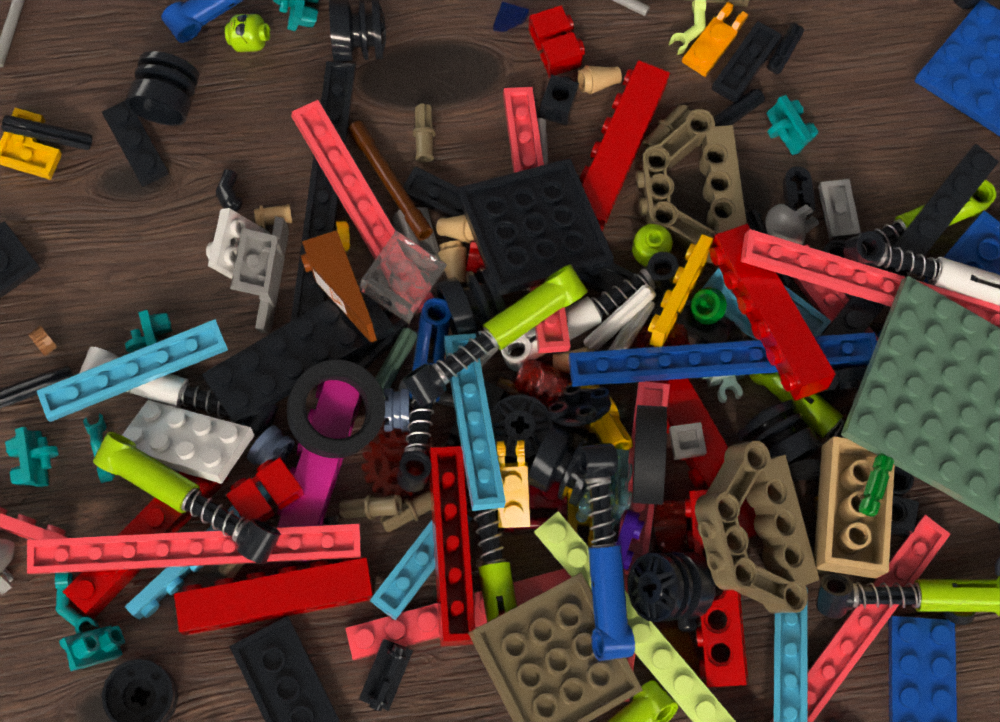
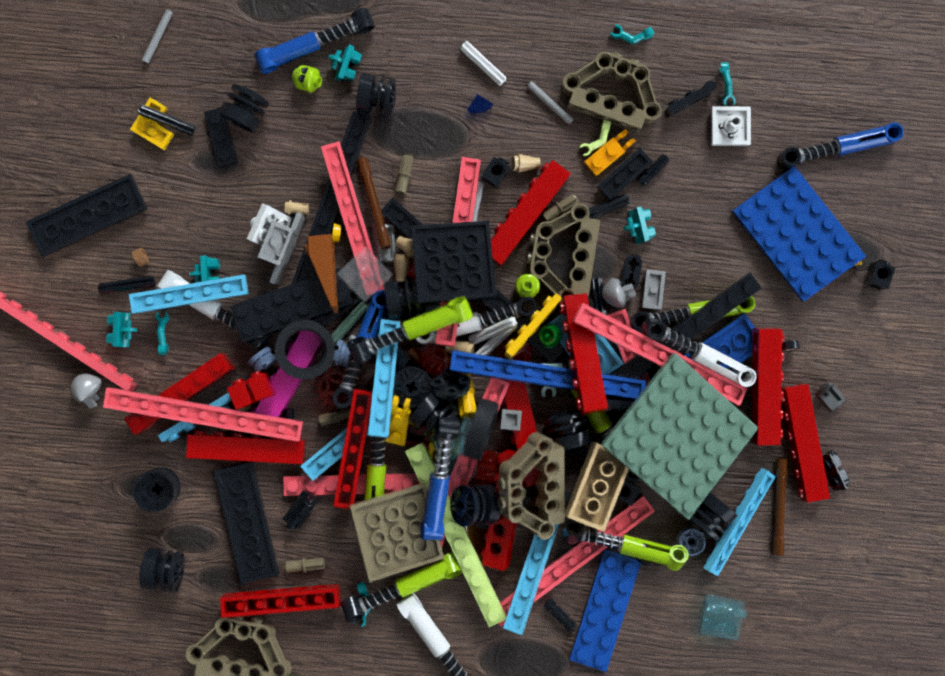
camera: 20 degrees right, 15 degrees up
(62, 581) = (125, 427): teal arm -> none
(93, 647) = (135, 453): teal hips -> none
(121, 457) = (170, 348): piece -> none
(189, 440) = (211, 345): white plate -> none
(225, 192) = (270, 185): black arm -> none
(371, 507) = (314, 409): dark tan axle -> none
(553, 34) = (504, 130): red piece -> none
(630, 529) = (461, 465): dark purple plate -> none
(876, 485) = (612, 480): green axle -> none

